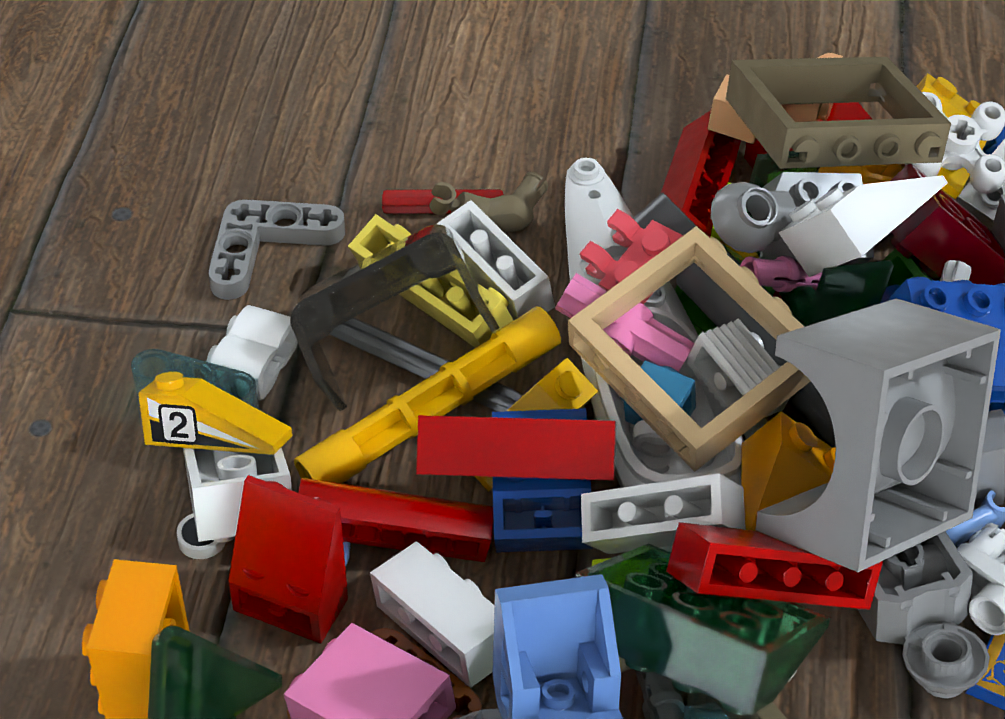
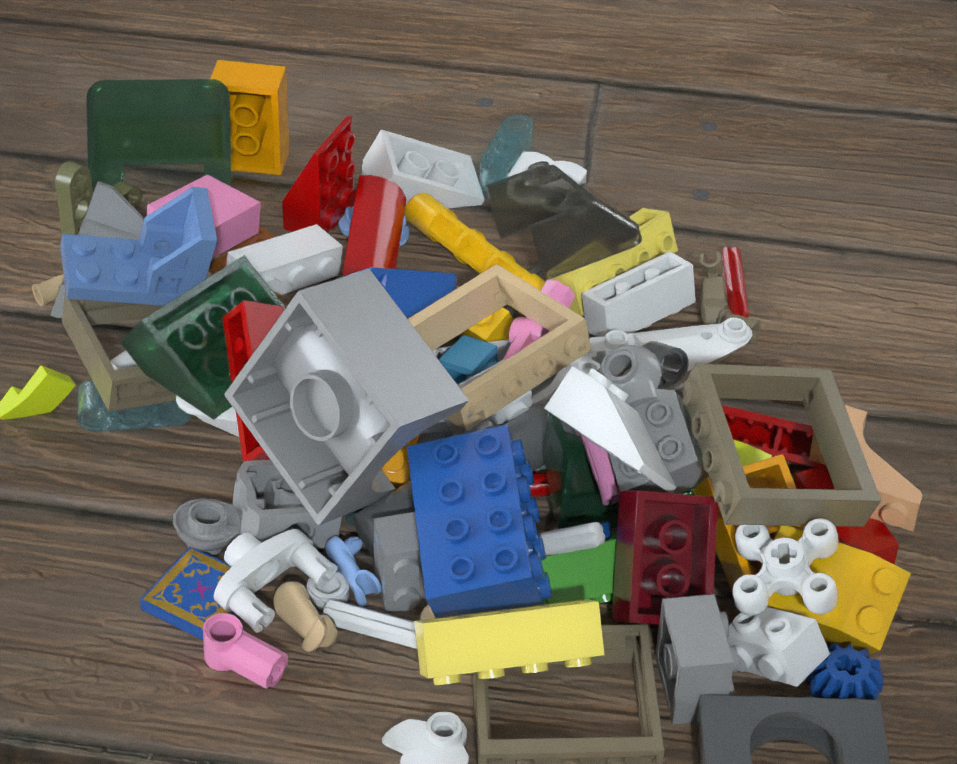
camera: 90 degrees right, 5 degrees down
(202, 416) = (464, 150): yellow slope -> none
(253, 231) = (645, 176): light grey beam -> none
(516, 447) = (406, 258): red brick -> none
(641, 245) = (608, 336): coral plate -> none

